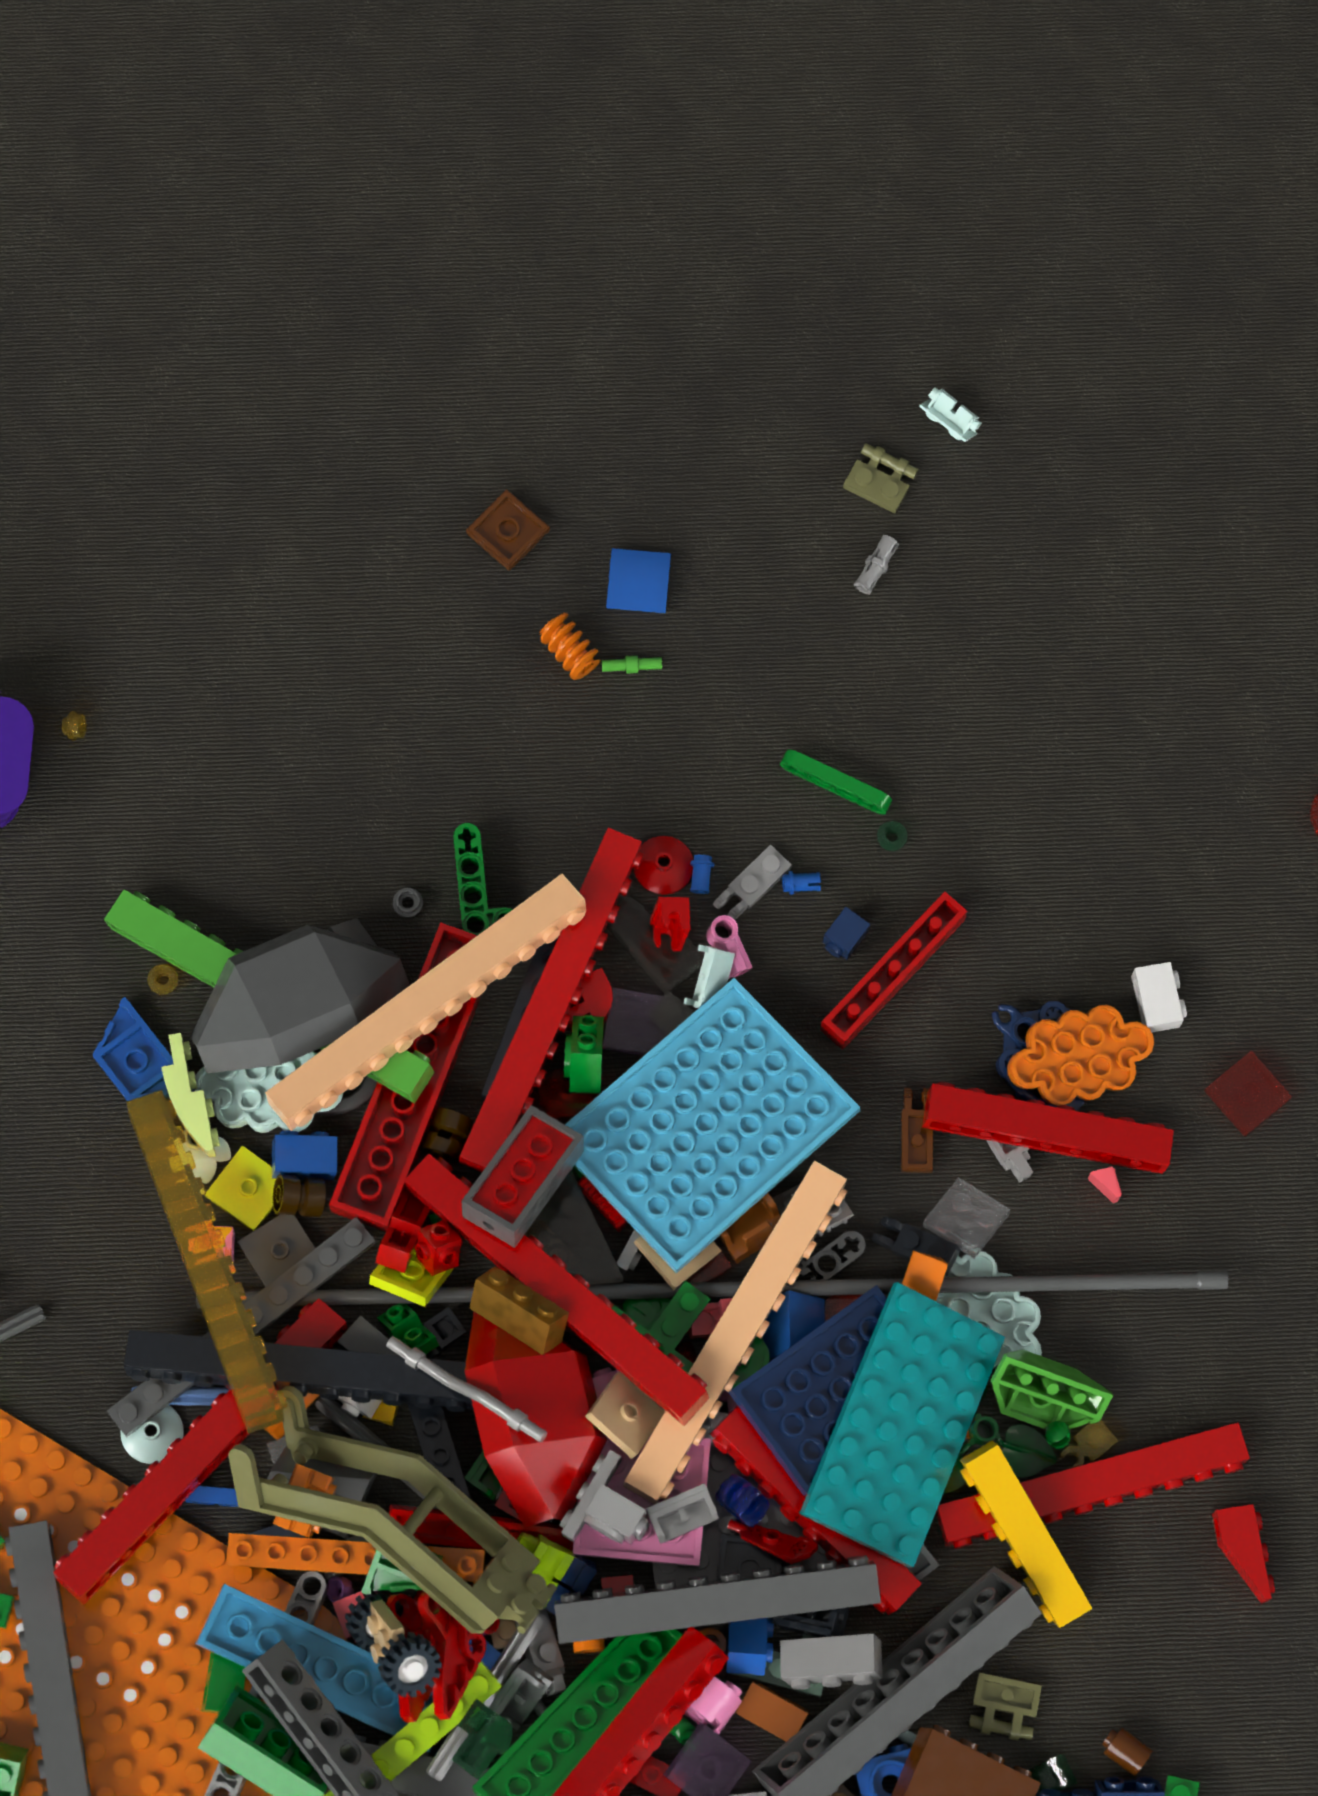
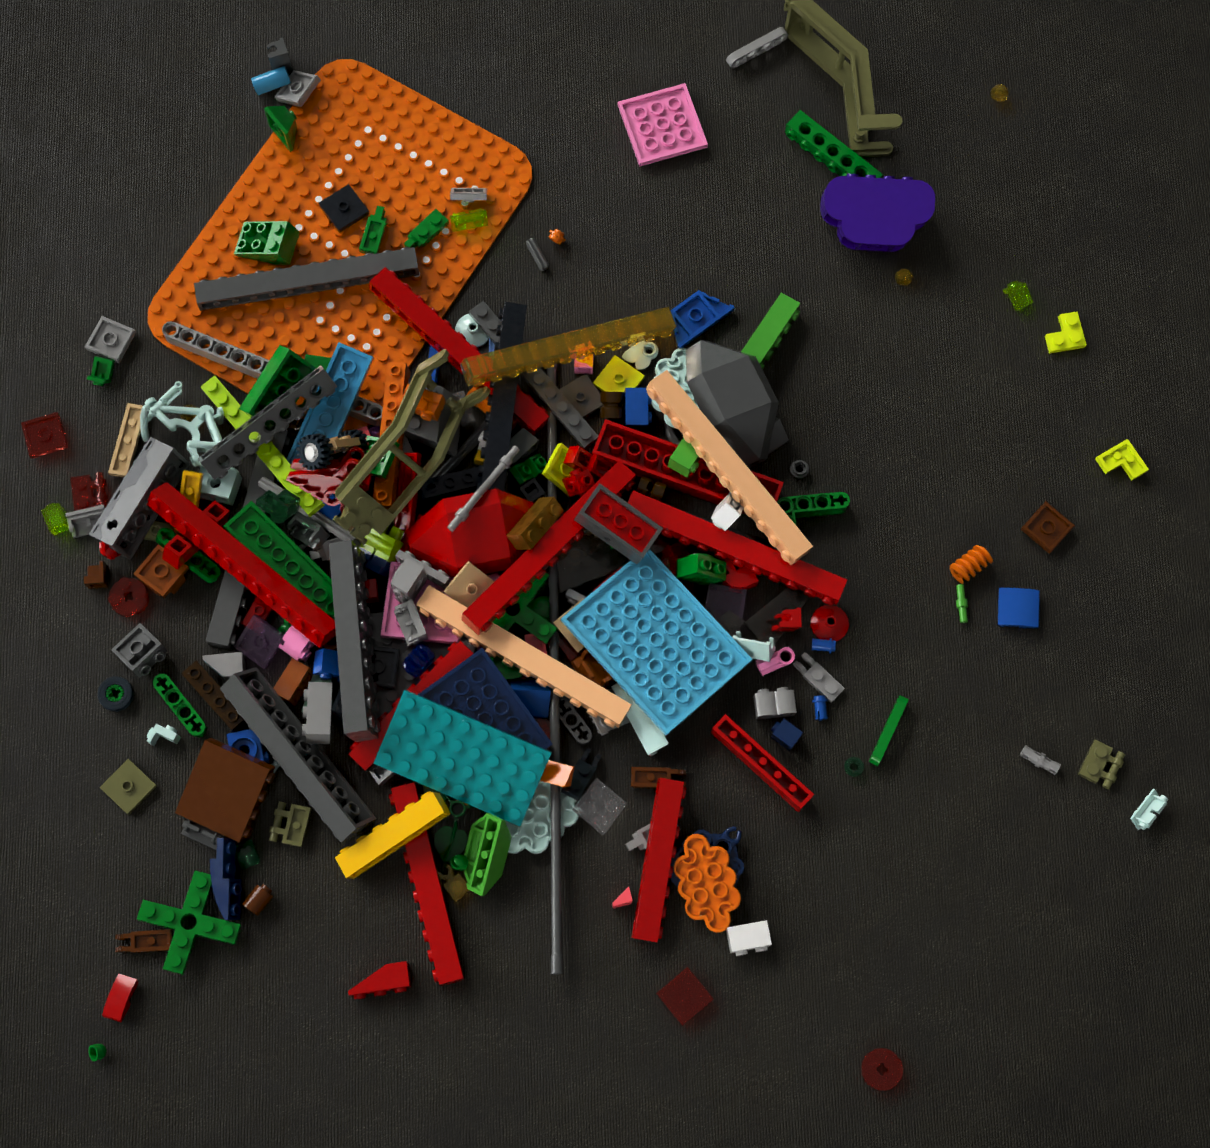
camera: 90 degrees right, 0 degrees up
(110, 548) = (1018, 294): none -> clear neon green bracket
(162, 970) = (746, 325): clear yellow plate -> none
(180, 472) = (1070, 337): none -> neon yellow plate
(190, 1106) = (665, 341): yellowish green slope -> none
(390, 409) = (1124, 456): none -> neon yellow plate
(498, 1008) = (726, 512): none -> white brick
(773, 1541) = (388, 687): red piece -> none
(797, 950) = (774, 704): none -> light grey brick
(849, 1142) = (648, 733): none -> light aqua panel

